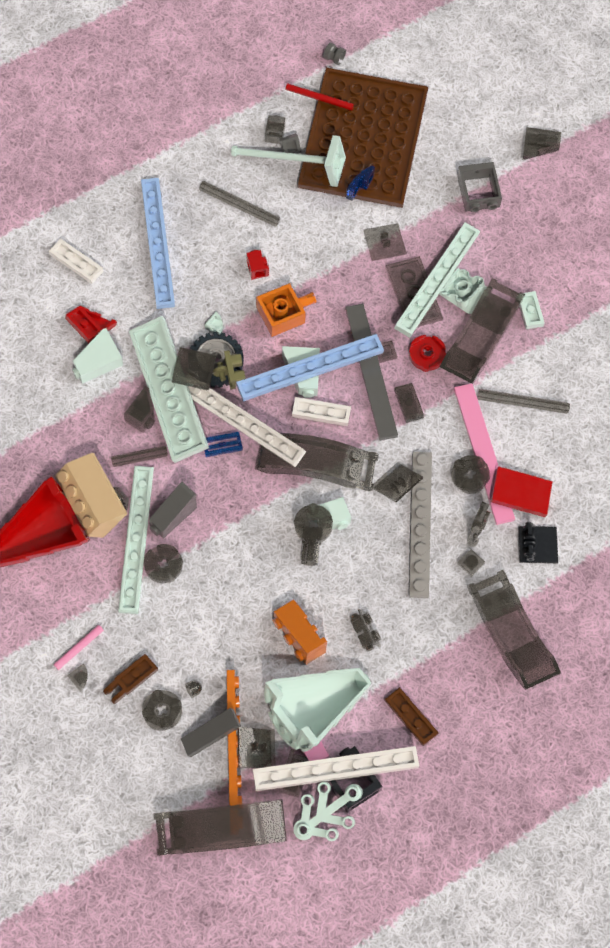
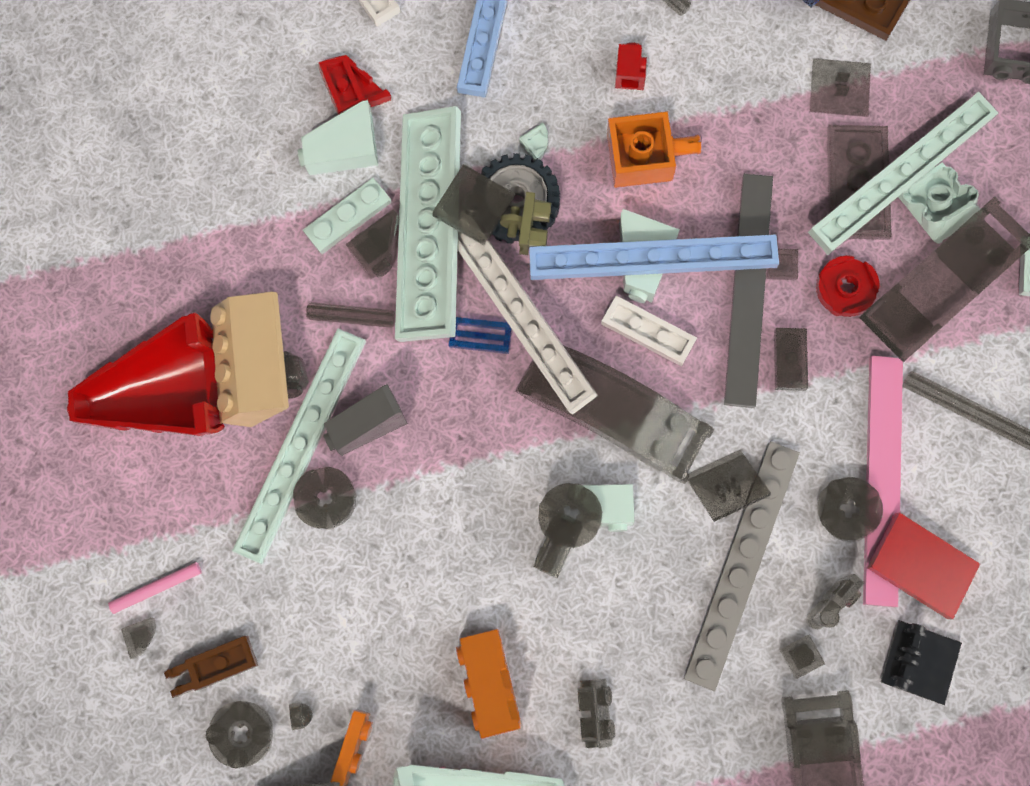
camera: 30 degrees right, 10 degrees up
(115, 400) = (347, 216): none -> light aqua plate

